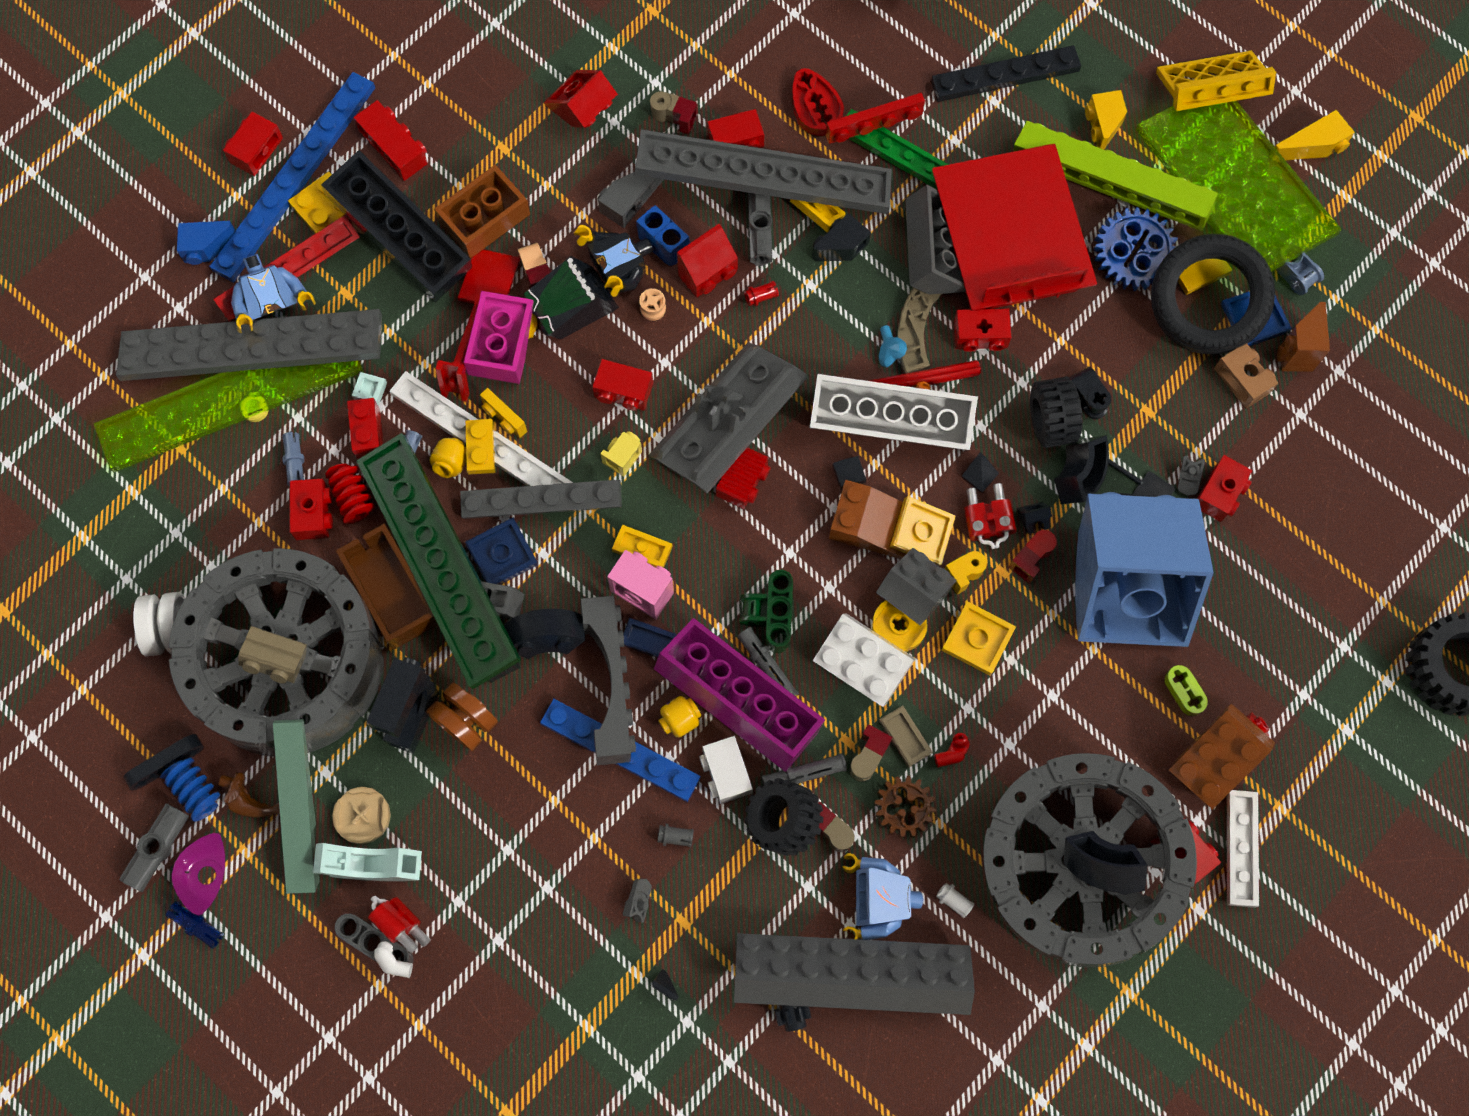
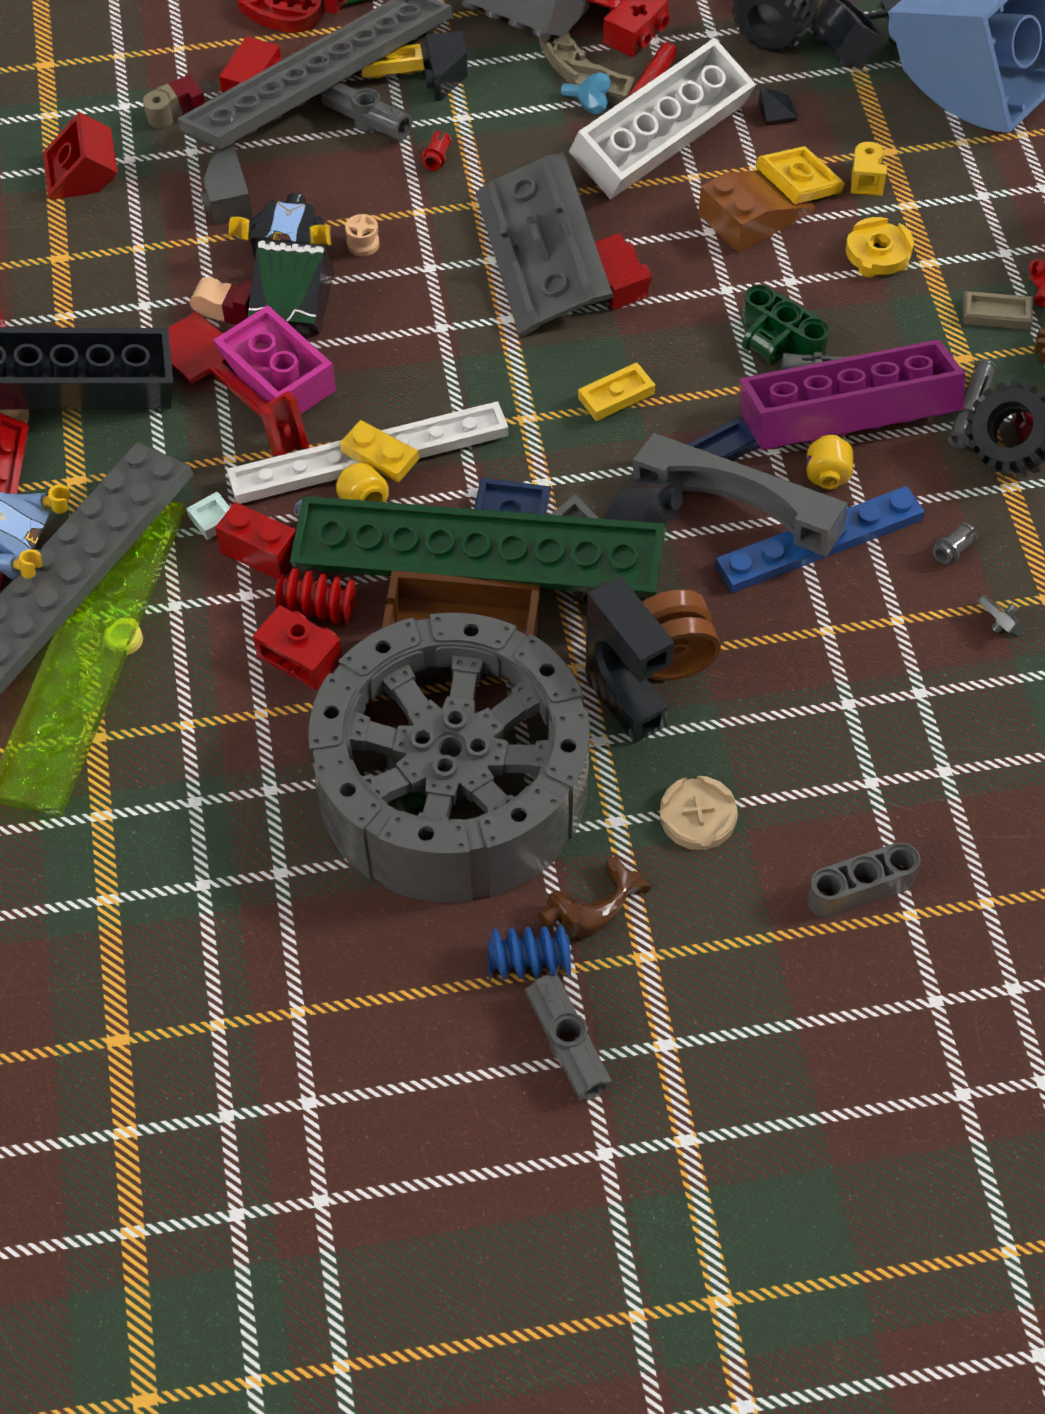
camera: 50 degrees left, 15 degrees down
(155, 620) = (307, 855): white wheel -> none
(157, 764) = (469, 968): black beam -> none
(194, 925) = (695, 1055): clear blue pin -> none
(199, 854) = (618, 995): magenta piece -> none
(271, 655) = (464, 732): dark tan brick -> none
(293, 458) = (221, 630): sand blue pin -> none
(295, 806) = (654, 836): sand green slope -> none
(367, 864) = (772, 823): light aqua arch -> none
(388, 963) = (906, 860): white arm -> none
(397, 923) = (860, 836): red piece -> none
(482, 211) = (119, 289): dark orange brick -> none
(509, 420) = (343, 416): yellow plate -> none
(541, 499) = (490, 432): dark grey plate -> none
(622, 385) = (425, 304): red brick -> none
(622, 453) = (499, 347): light yellow brick -> none
(641, 583) = (663, 402): bright pink brick -> none
(665, 252) = (300, 175): blue piece -> none
(707, 261) = (366, 163): red slope -> none
(726, 770) = (919, 458): white brick -> none
(850, 470) = (684, 196): black tile -> none
(864, 659) = (897, 282): white brick -> none
(865, 764) = (994, 339): leg -> none
(916, 586) = (858, 198): dark grey brick -> none
(978, 638) = (944, 198): yellow plate -> none
(991, 518) = (831, 122): red piece -> none
(1035, 512) = (858, 92): black tile -> none
(1037, 548) = (894, 116): leg -> none

